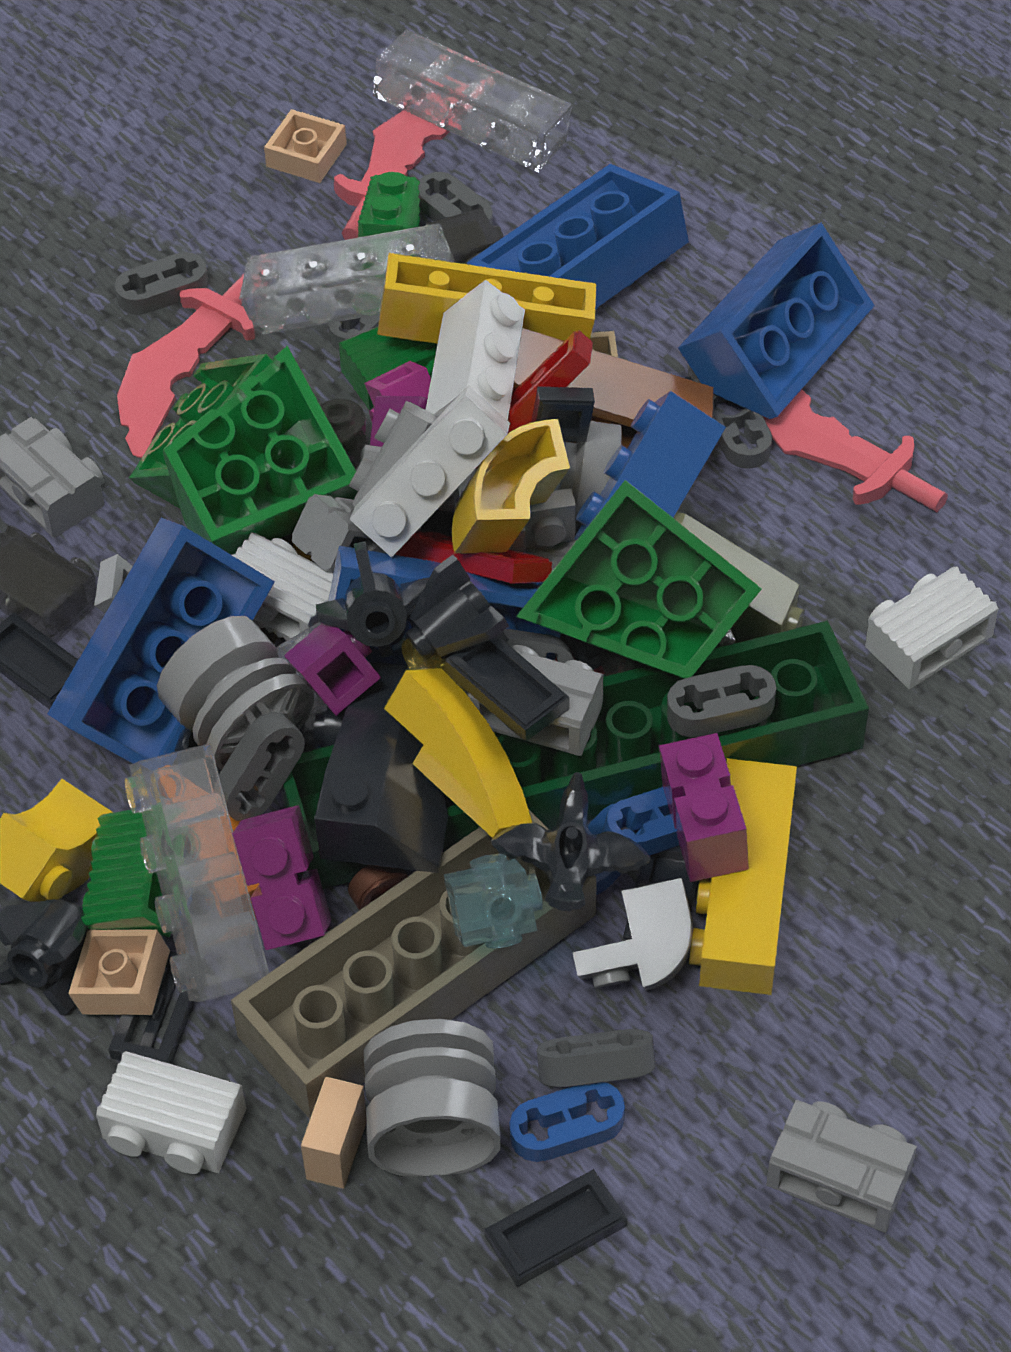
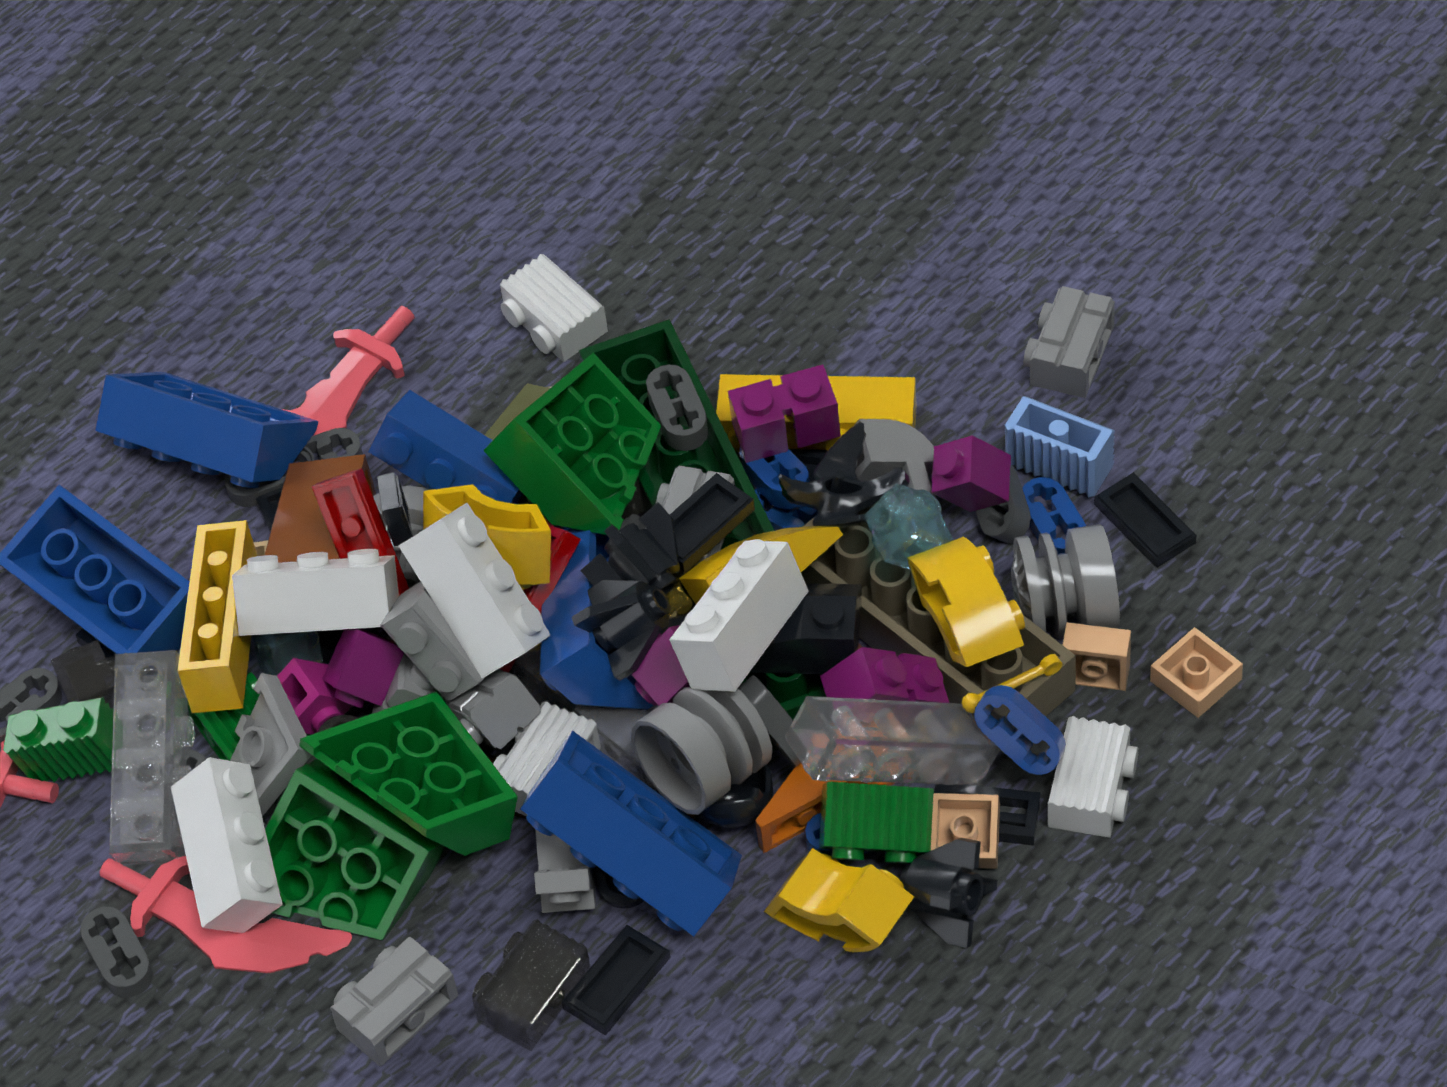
camera: 90 degrees left, 0 degrees up
(205, 1012) = (1020, 730): none -> blue beam
(224, 331) = (226, 845): none -> white brick
(254, 968) = (1049, 666): none -> yellow hinge
(306, 1252) = (1196, 672): none -> light nougat piece
(313, 349) = (270, 741): none -> light grey wing
(340, 692) = (739, 615): none -> white brick
(372, 954) = (967, 601): none -> yellow brick
(606, 1006) = (971, 473): none -> magenta brick
(658, 1121) = (1059, 446): none -> light blue brick

